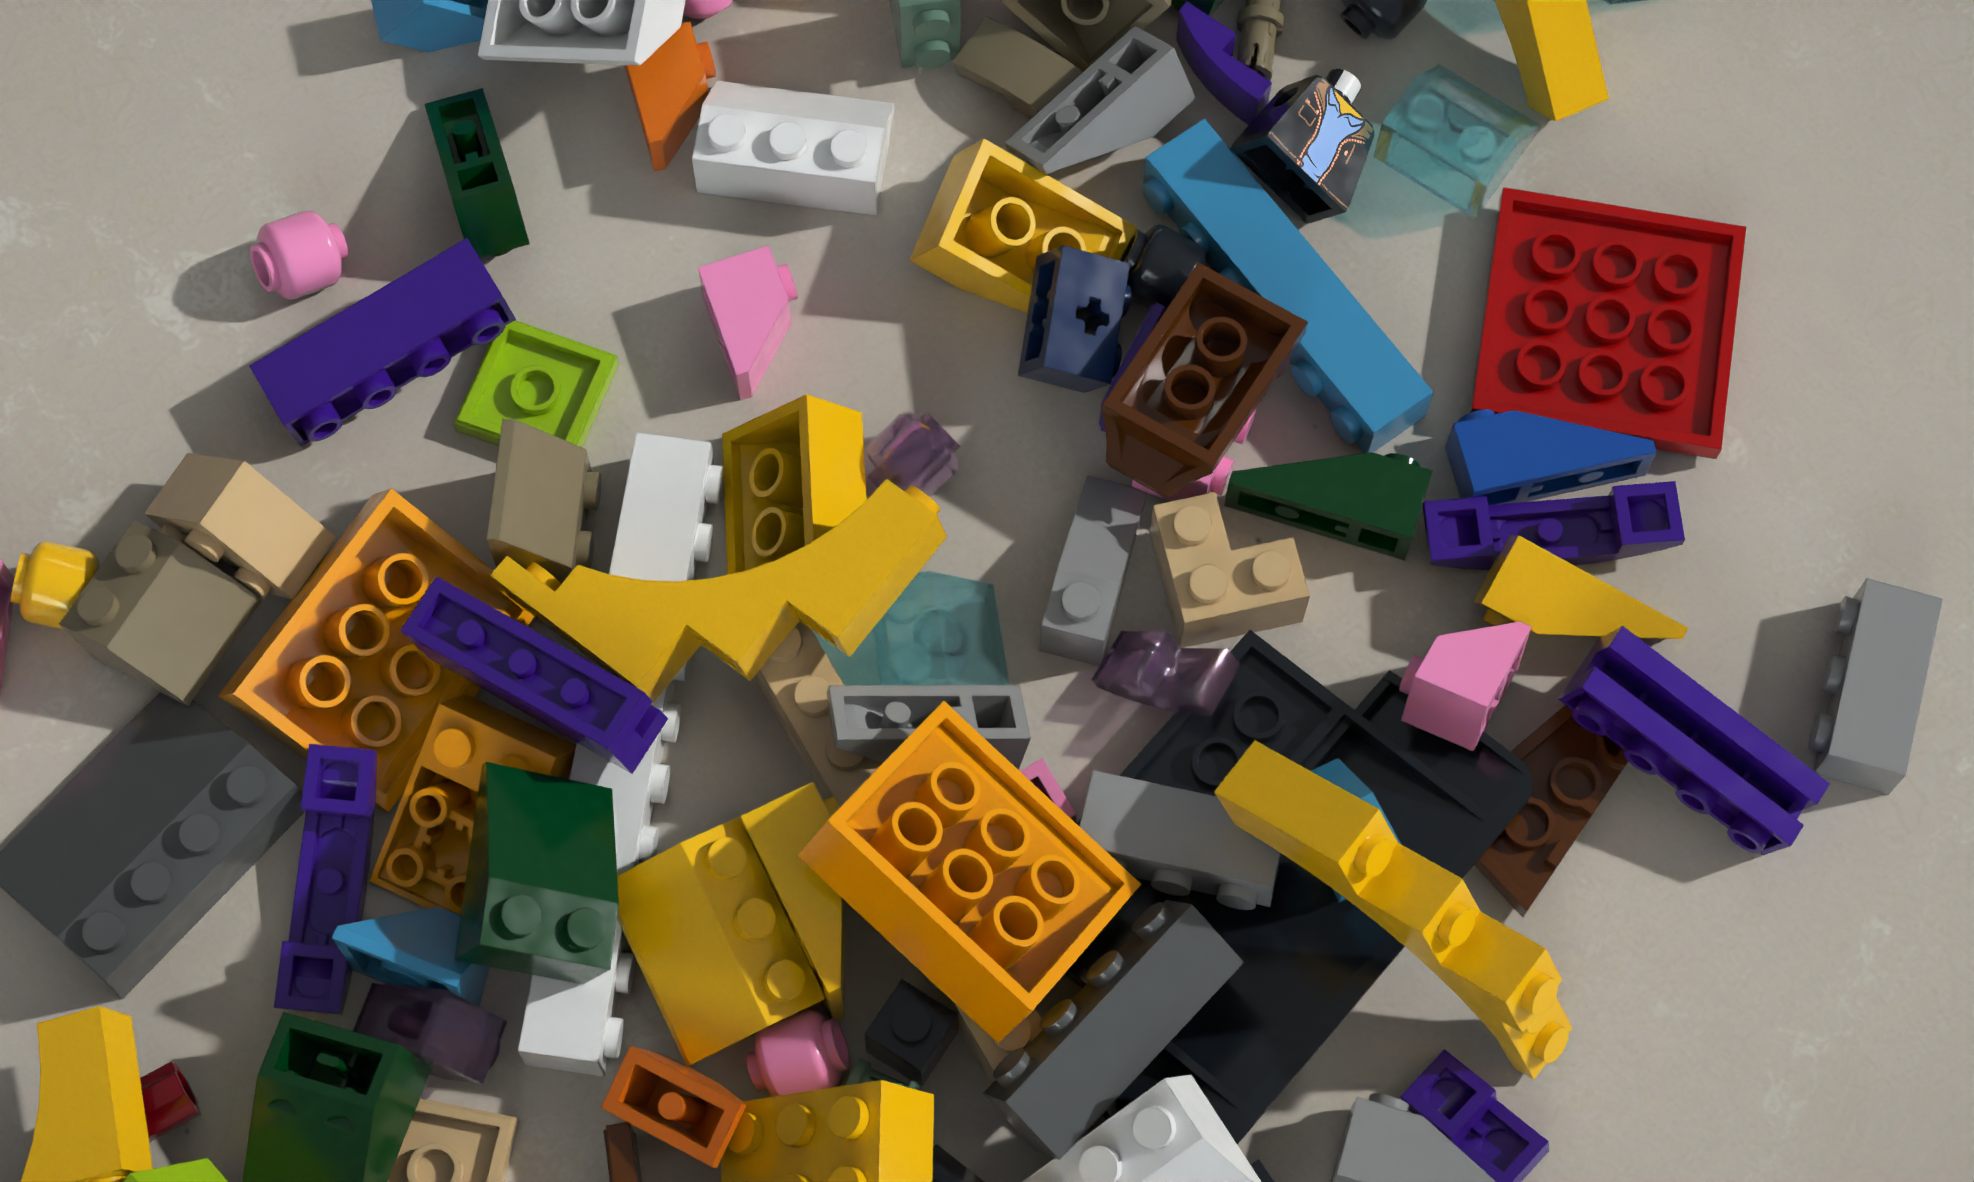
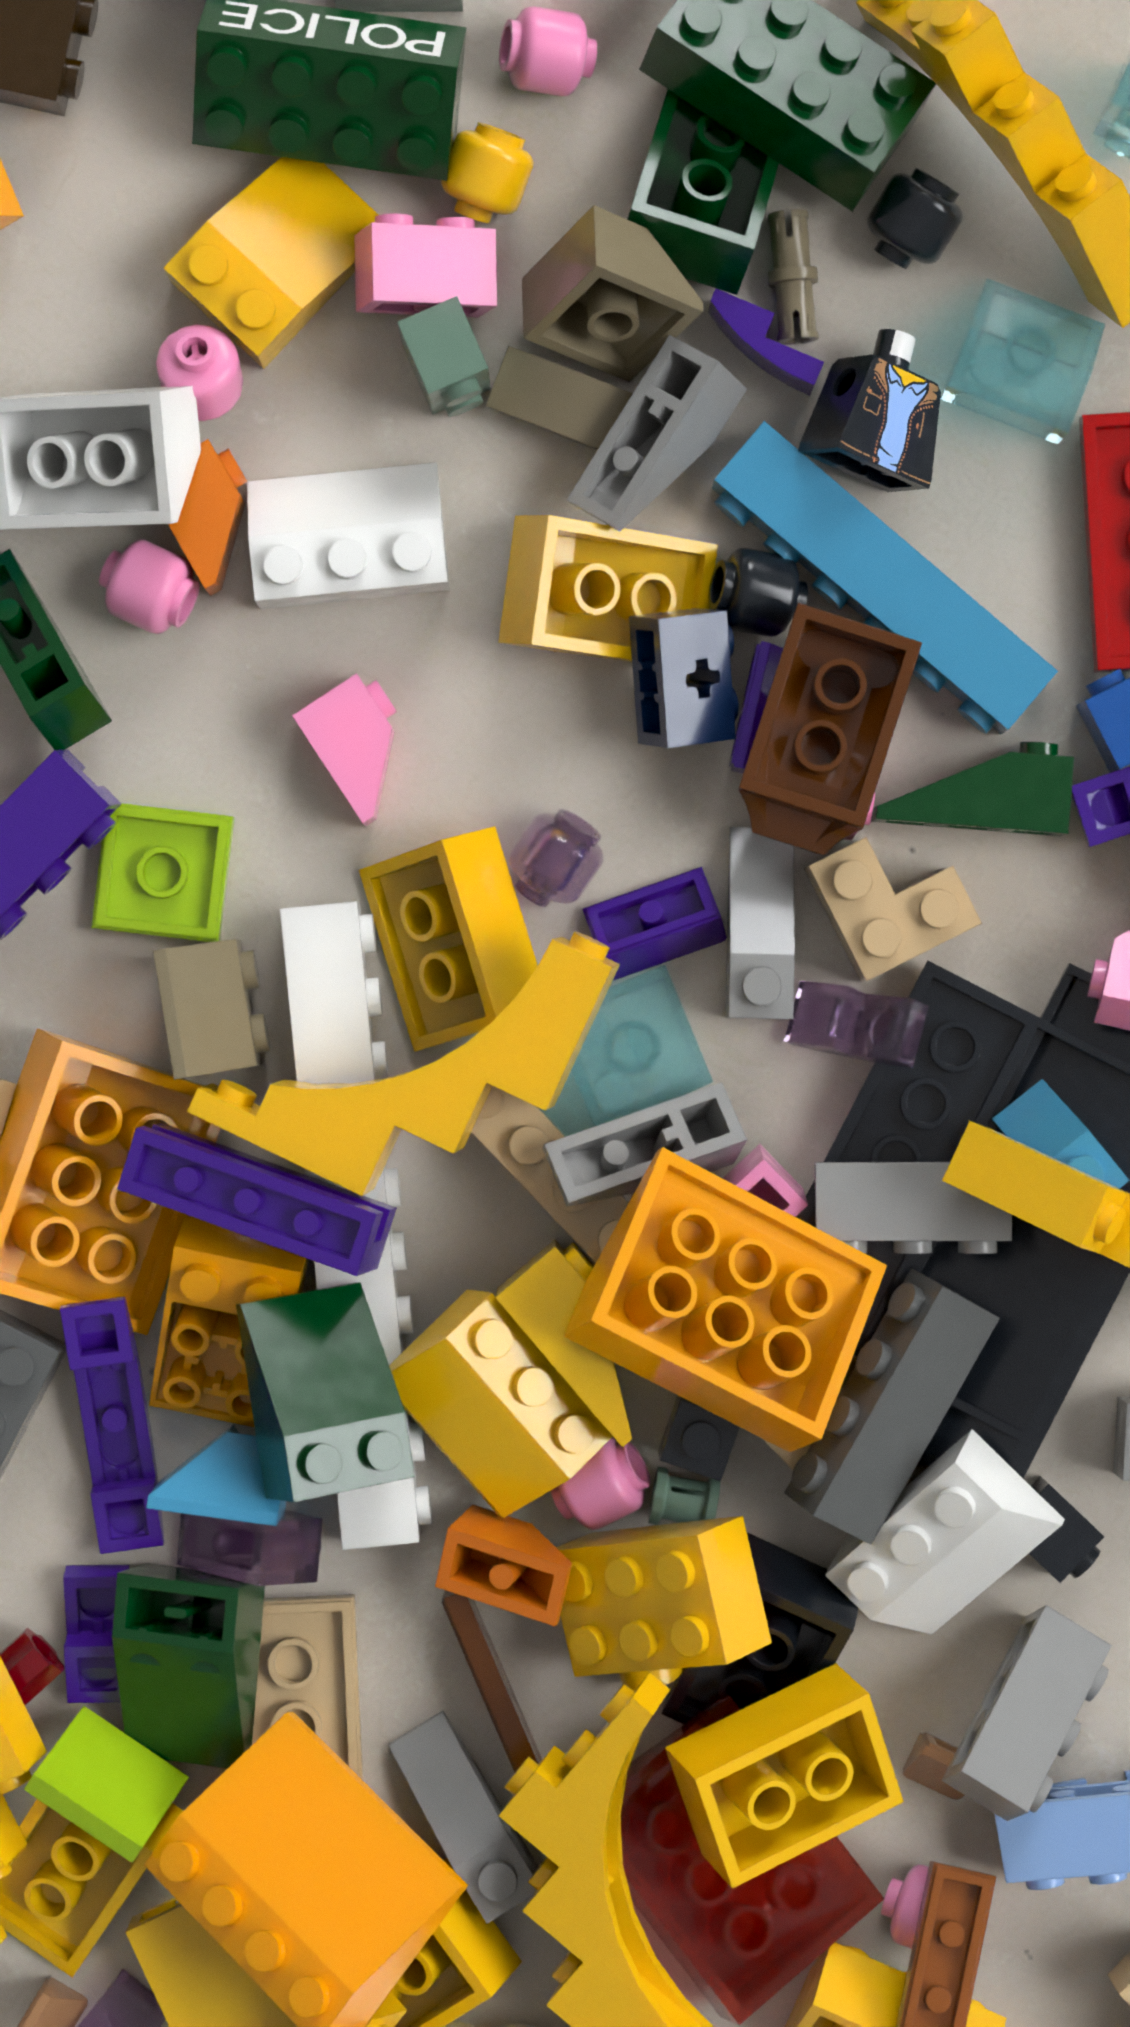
camera: 10 degrees left, 20 degrees up
(229, 1103) = (89, 1628): none -> dark purple slope
(599, 138) = (149, 586): none -> bright pink head
(999, 546) = (657, 922): none -> dark purple slope

